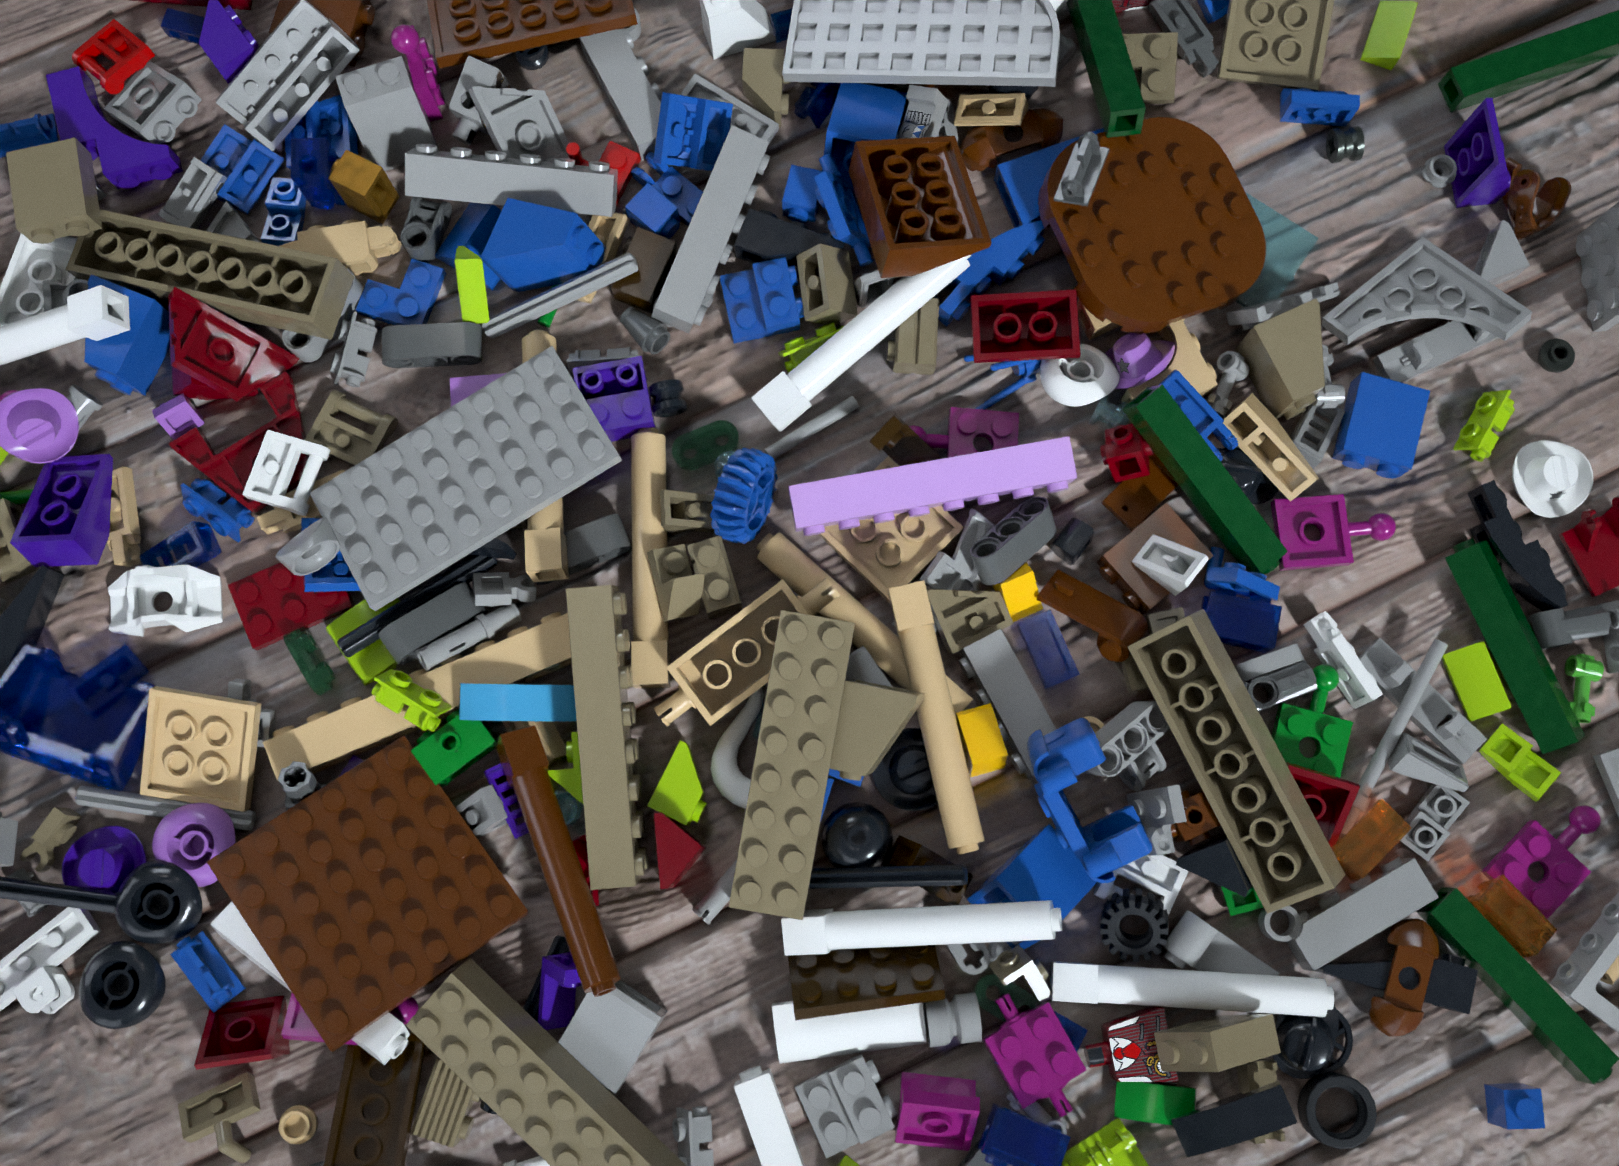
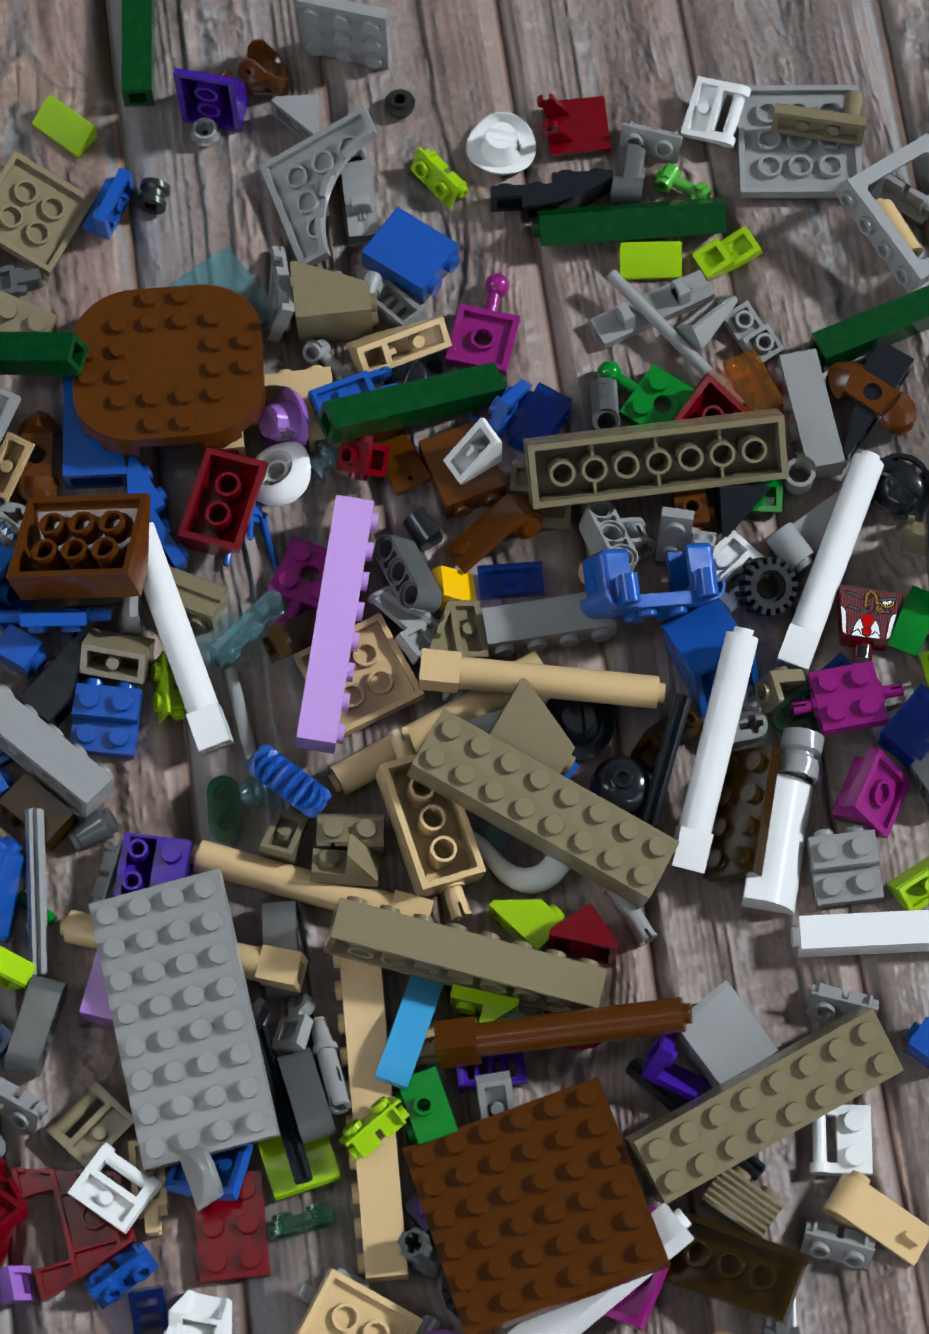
camera: 70 degrees left, 10 degrees down
(668, 398) = (169, 825): black wheel -> none
(901, 401) = (246, 628): none -> clear light blue plate
(981, 740) = (571, 651): yellow slope -> none
(1082, 171) = (108, 403): dark grey hinge -> none
(1217, 1043) = (879, 550): dark tan brick -> none
(1269, 662) = (582, 406): light grey beam -> none
(1333, 649) = (589, 356): white hinge -> none
(1513, 915) = (847, 300): clear orange hinge -> none
(1561, 868) = (819, 253): magenta plate -> none

